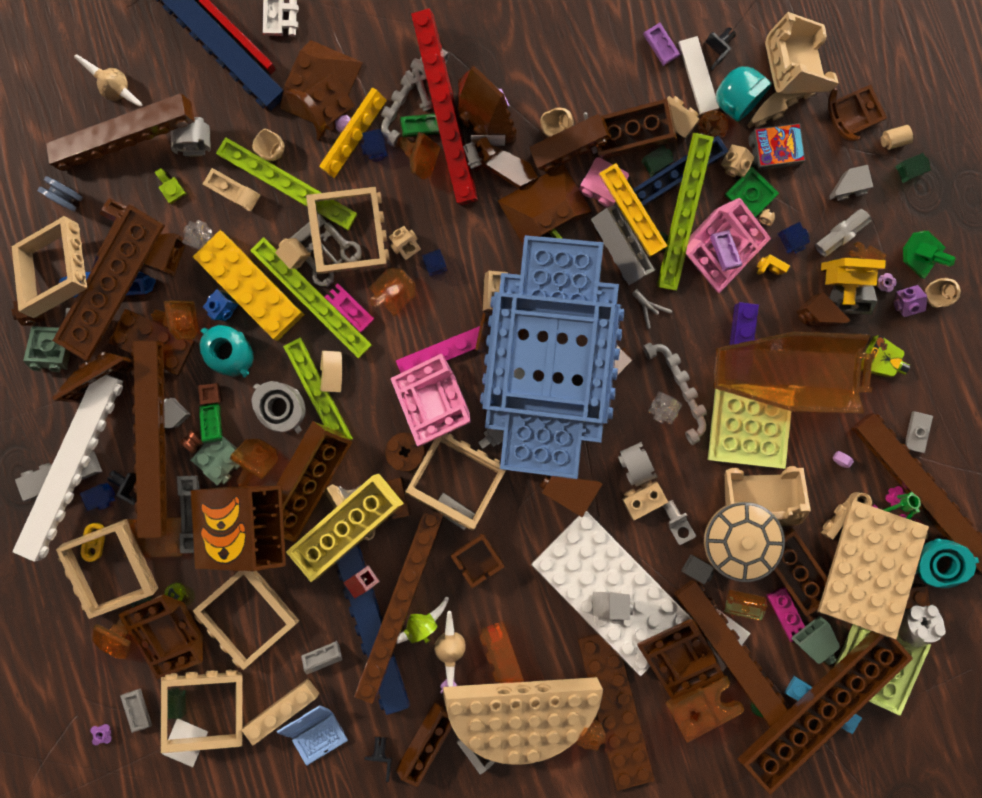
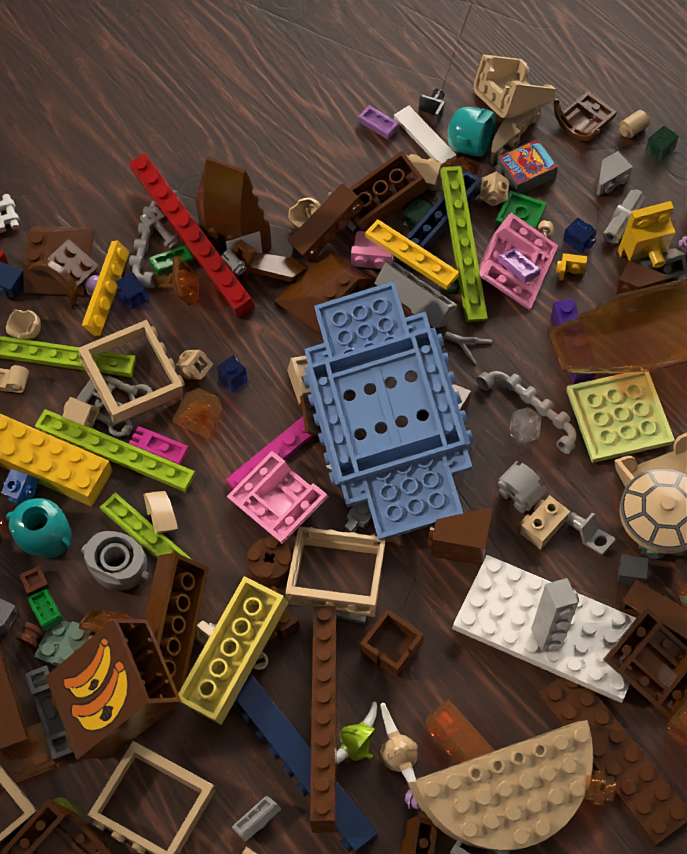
camera: 15 degrees left, 25 degrees down
(361, 582) = (271, 703): dark red brick -> none

